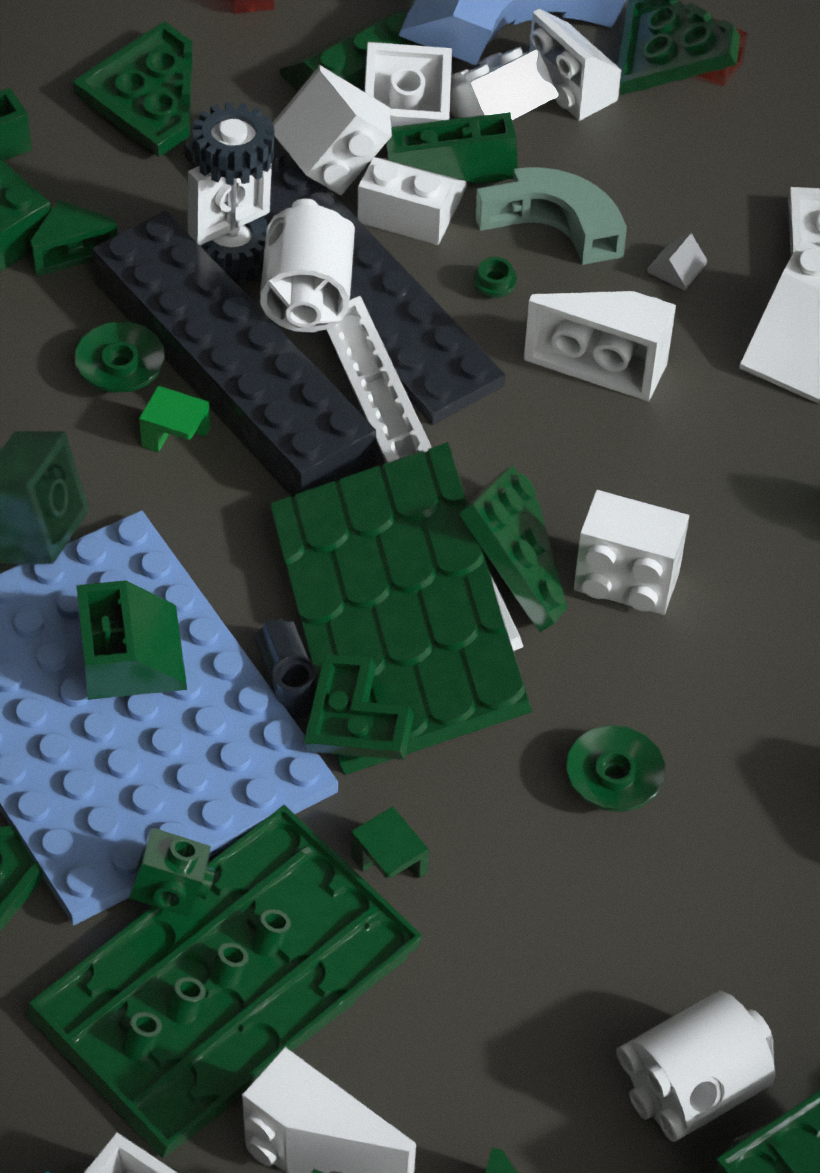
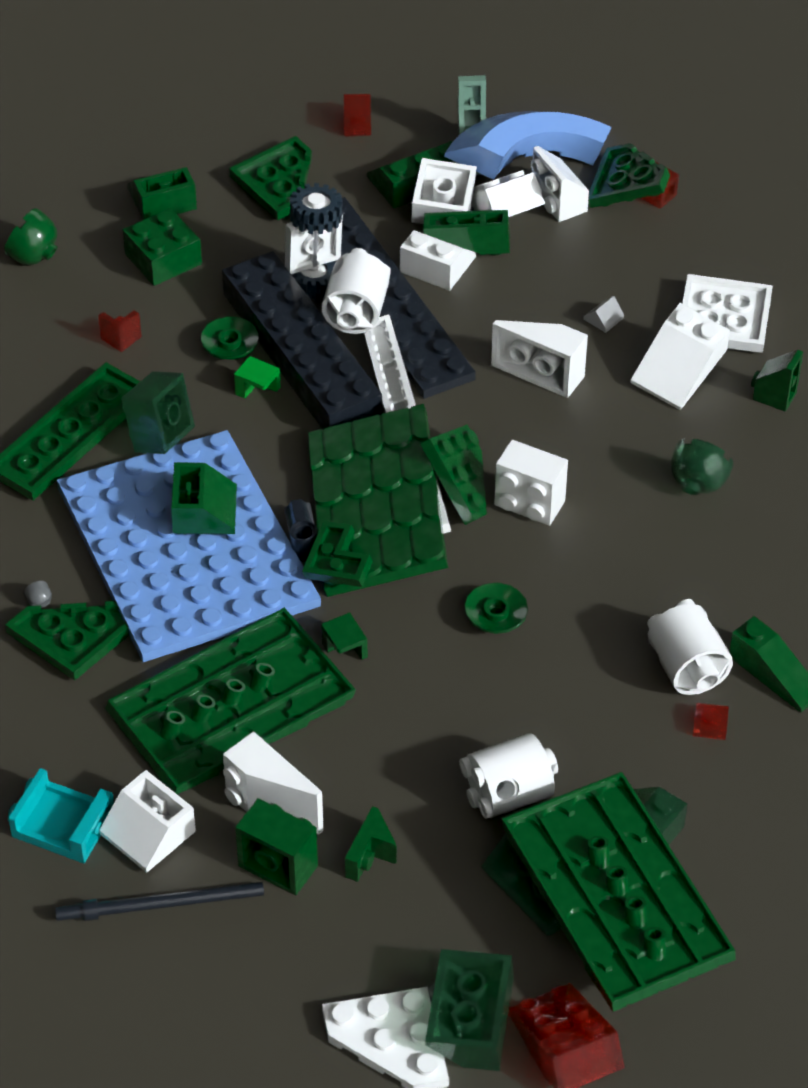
camera: 10 degrees right, 5 degrees down
(68, 237) = (207, 263): dark green slope -> none
(172, 872) = (205, 633): dark green brick -> none
(332, 129) = (389, 210): white slope -> none
(495, 277) = (481, 312): dark green plate -> none
(559, 201) = (529, 268): sand green arch -> none

